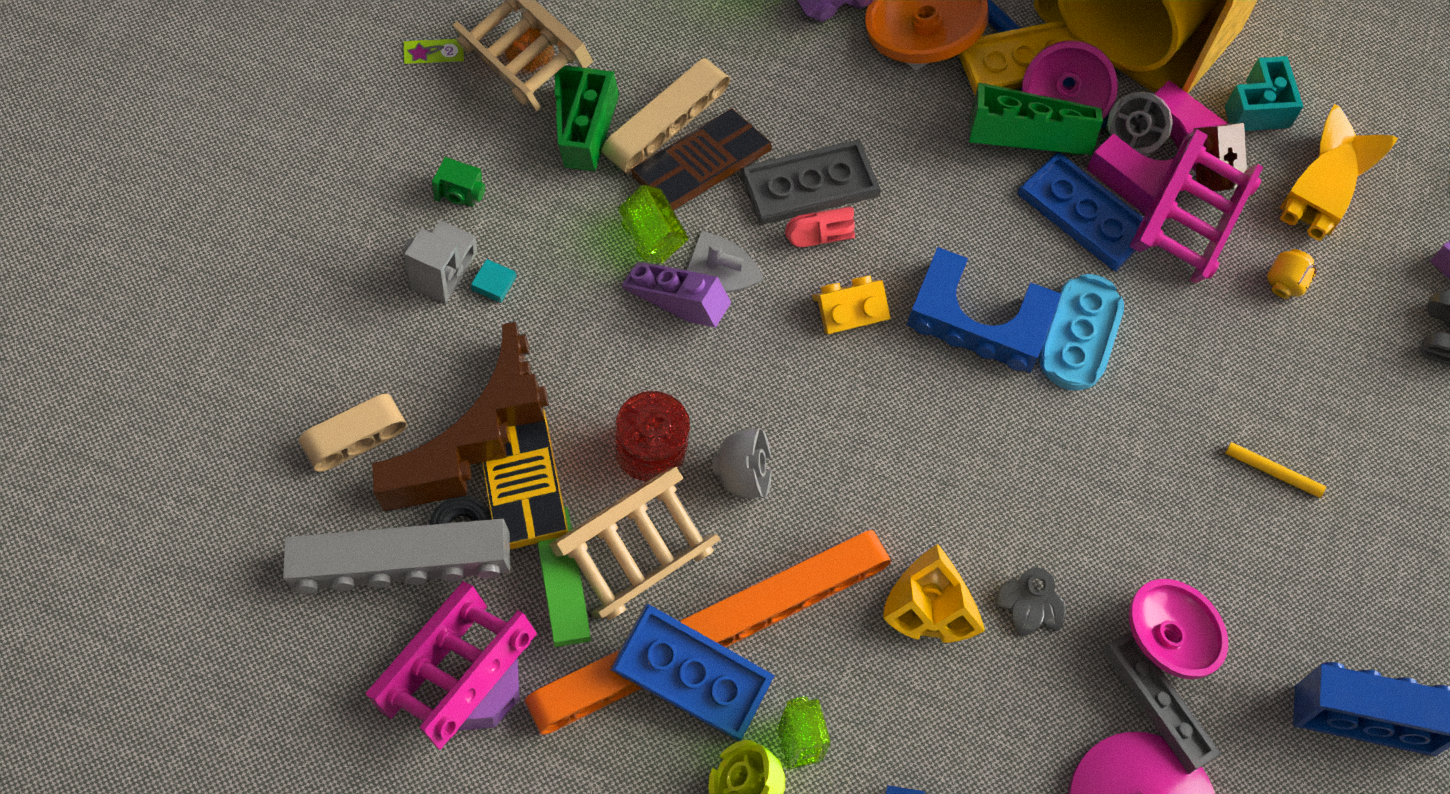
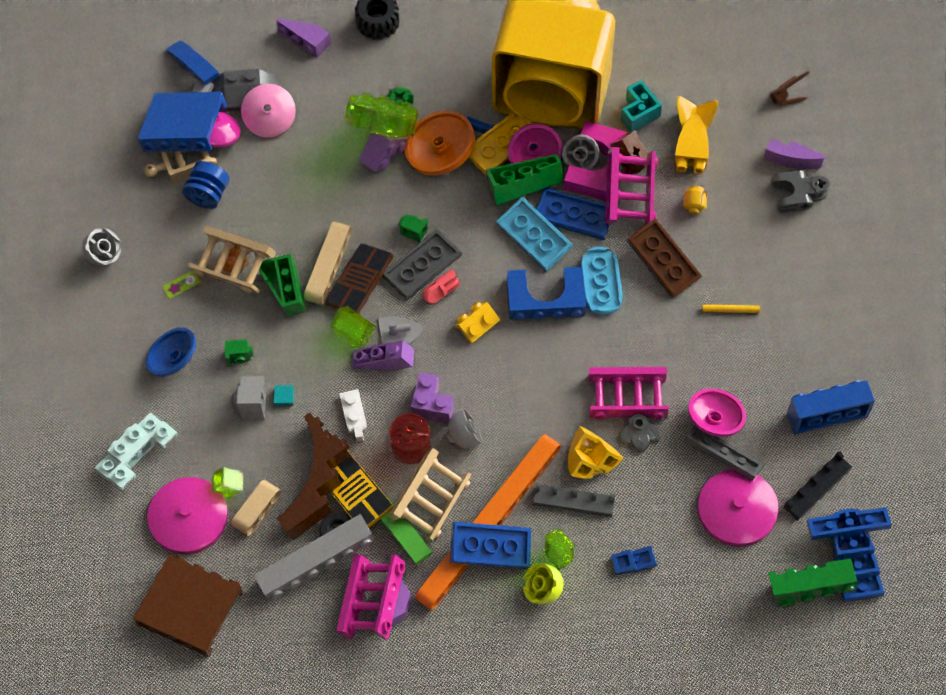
camera: 15 degrees left, 0 degrees up
(159, 534) = (187, 604): none -> reddish brown panel
(216, 253) = (132, 447): none -> light aqua bracket
(243, 395) = (187, 515): none -> dark pink dish
(330, 371) = (227, 482): none -> clear neon green brick
(356, 138) = (171, 352): none -> blue dish
(586, 358) = (353, 413): none -> white hinge
(710, 391) = (429, 403): none -> medium lavender brick
(824, 120) = (413, 227): none -> green brick
(870, 662) = (574, 500): none -> dark grey hinge
(1009, 213) = (534, 234): none -> medium azure tile
(1070, 508) = (636, 375): none -> dark pink fence
(1200, 340) = (664, 258): none -> reddish brown tile

